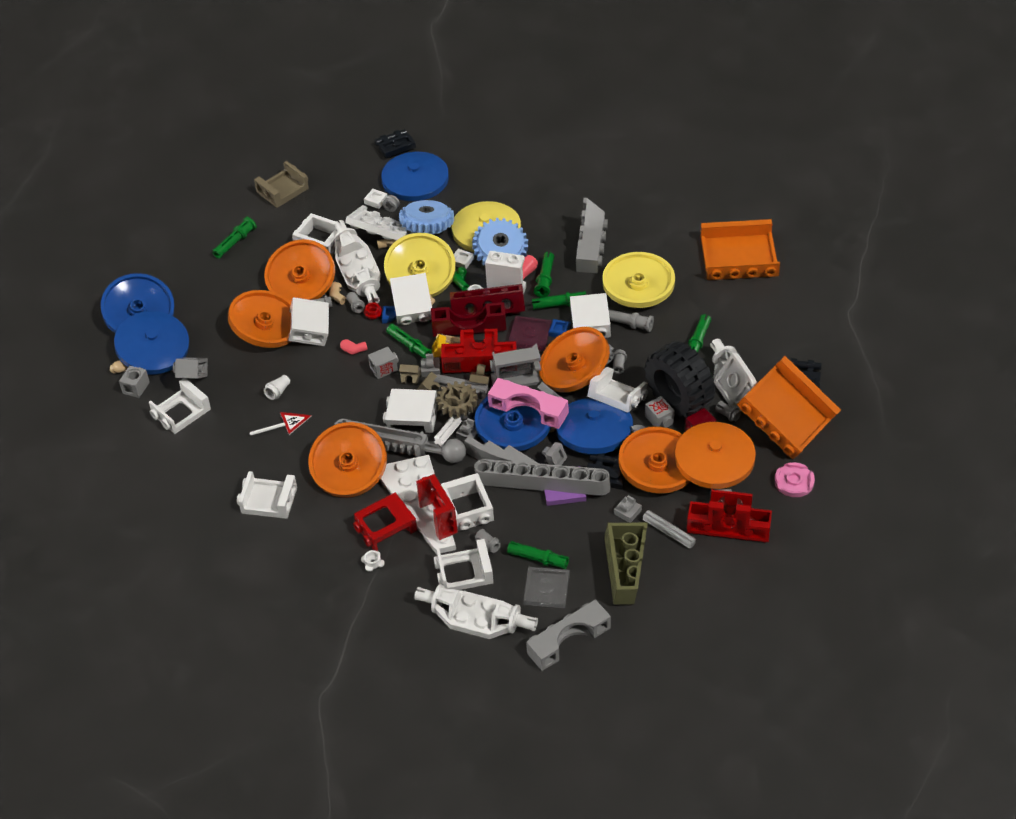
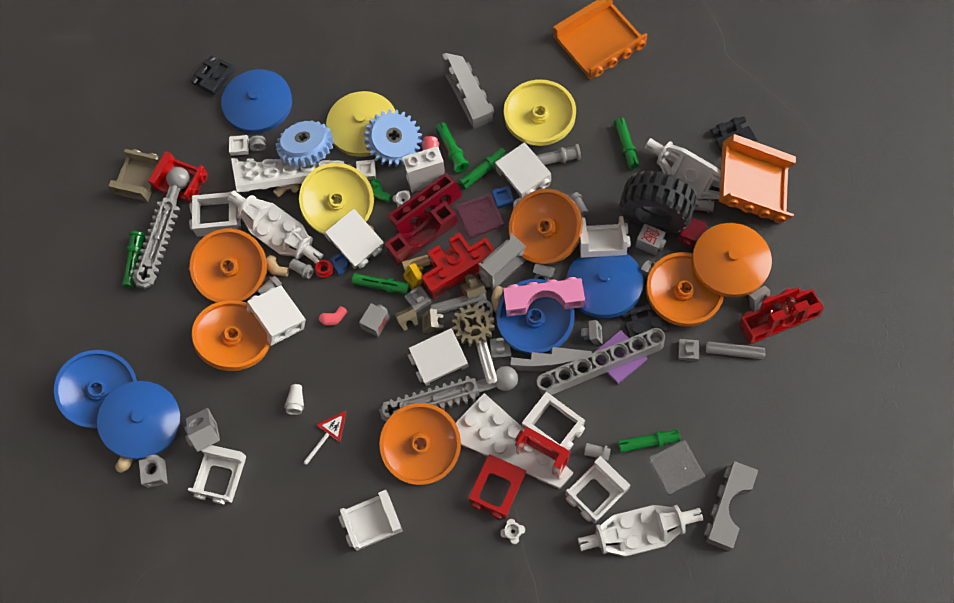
camera: 30 degrees left, 20 degrees up
(270, 226) = (166, 215): none -> light grey gear
(307, 191) = (168, 162): none -> red window
(624, 555) = (728, 406): olive wedge -> none
(794, 480) = (798, 243): bright pink tile -> none

